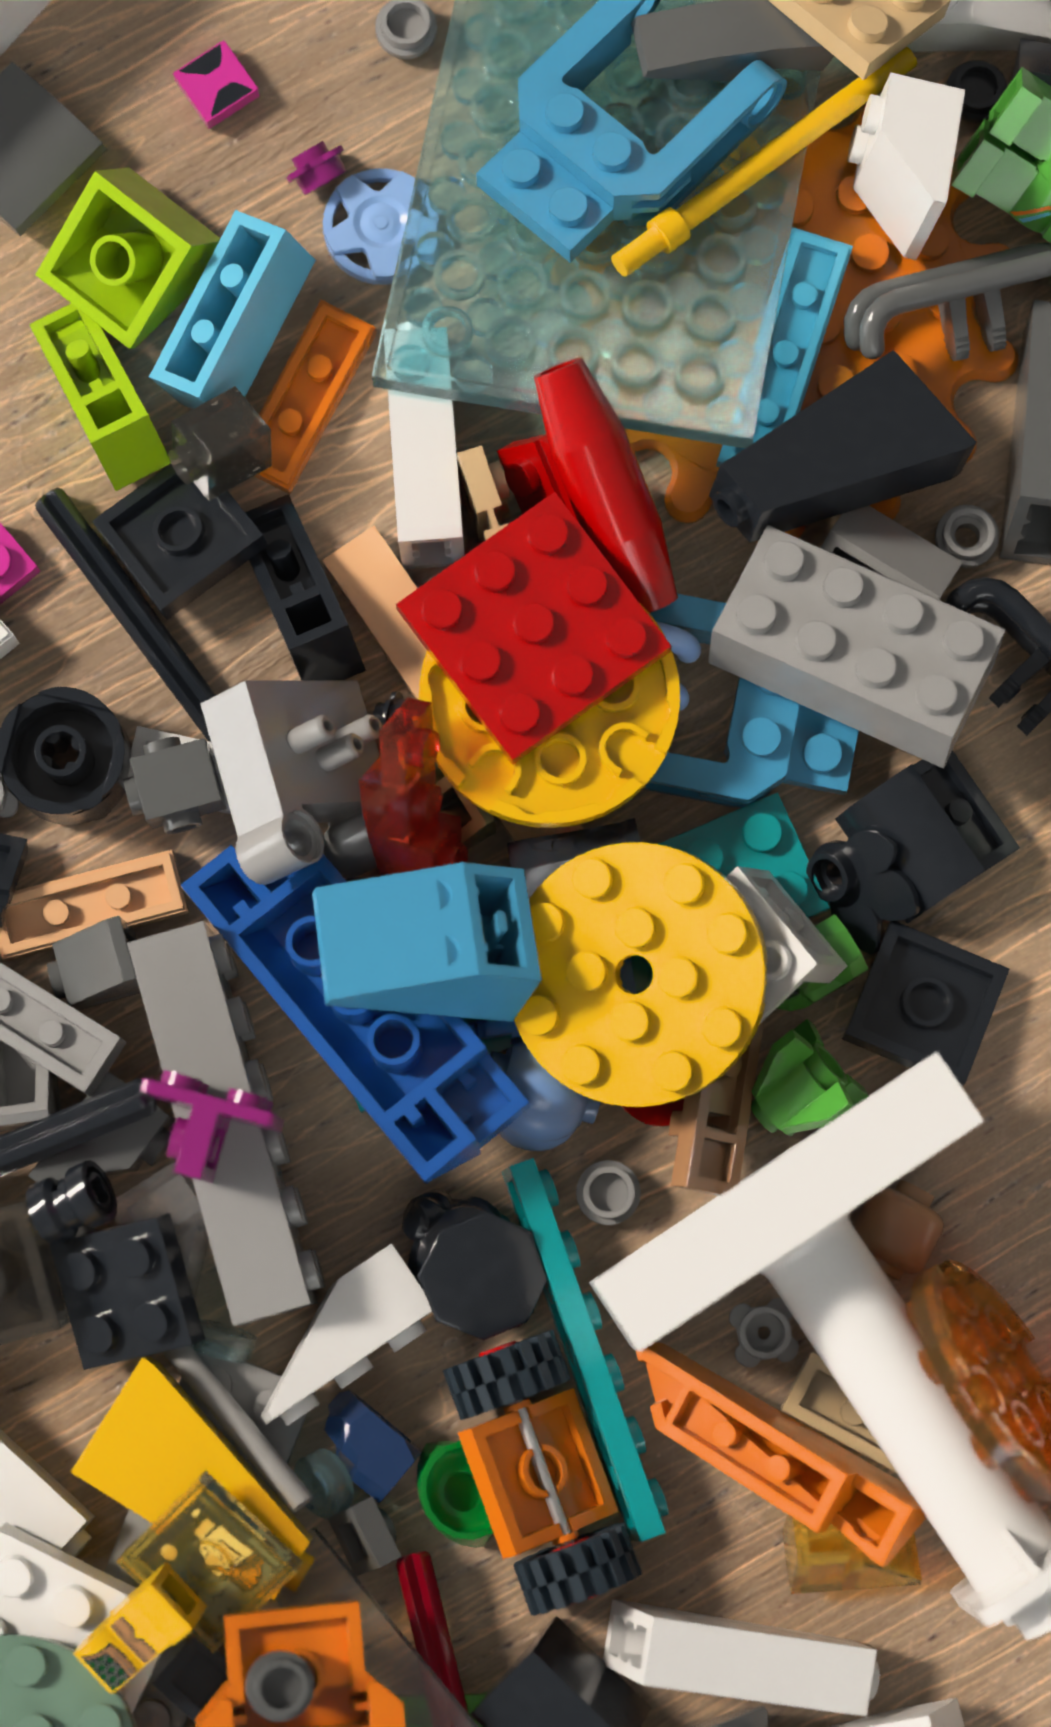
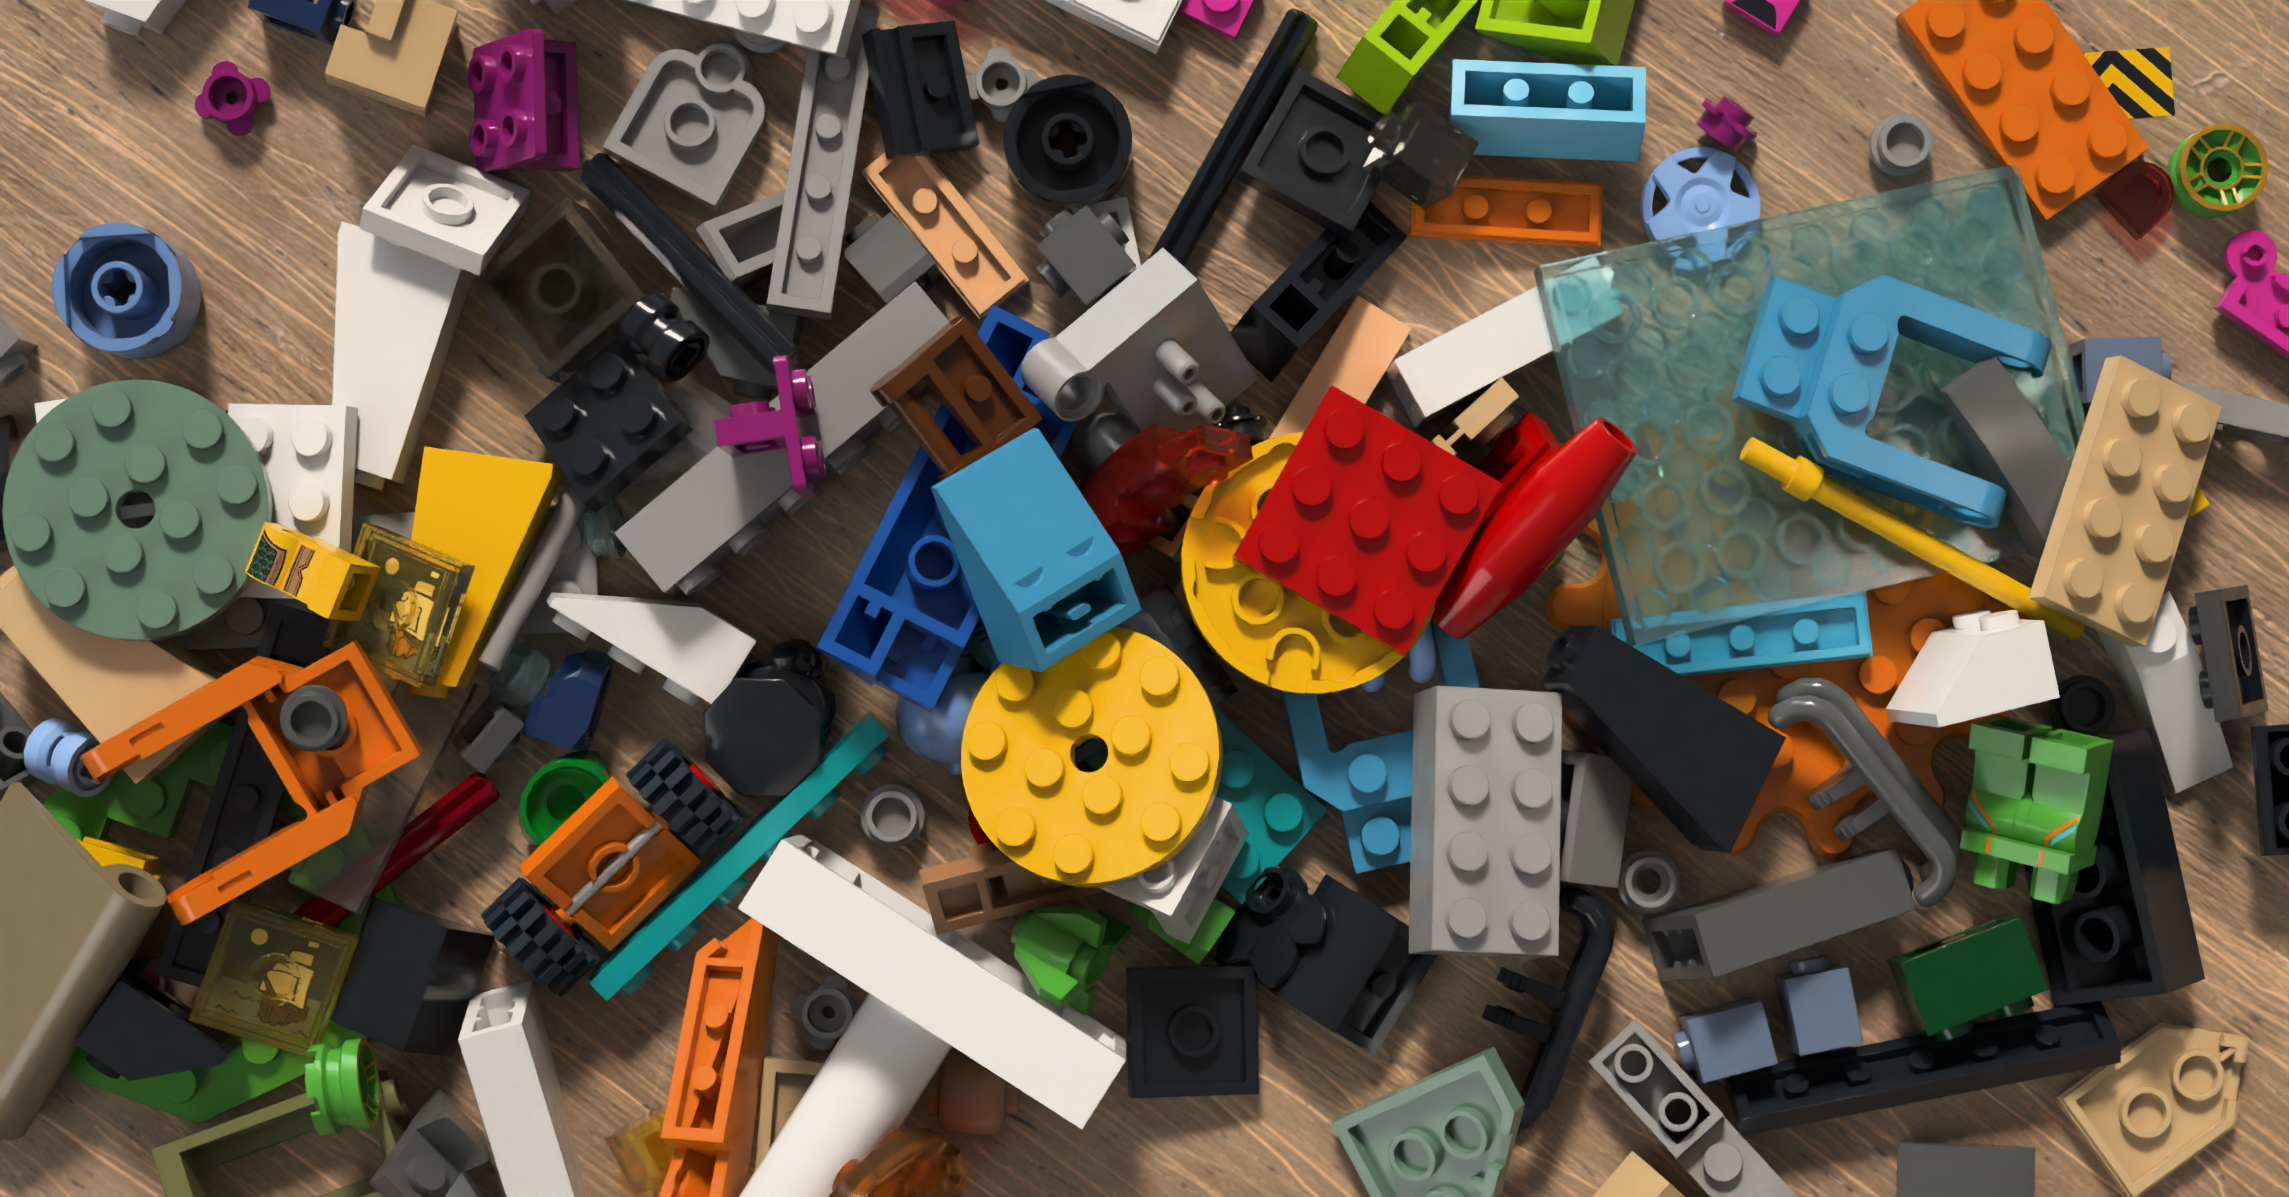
camera: 60 degrees right, 5 degrees up
(249, 933) = (969, 386): none -> reddish brown plate

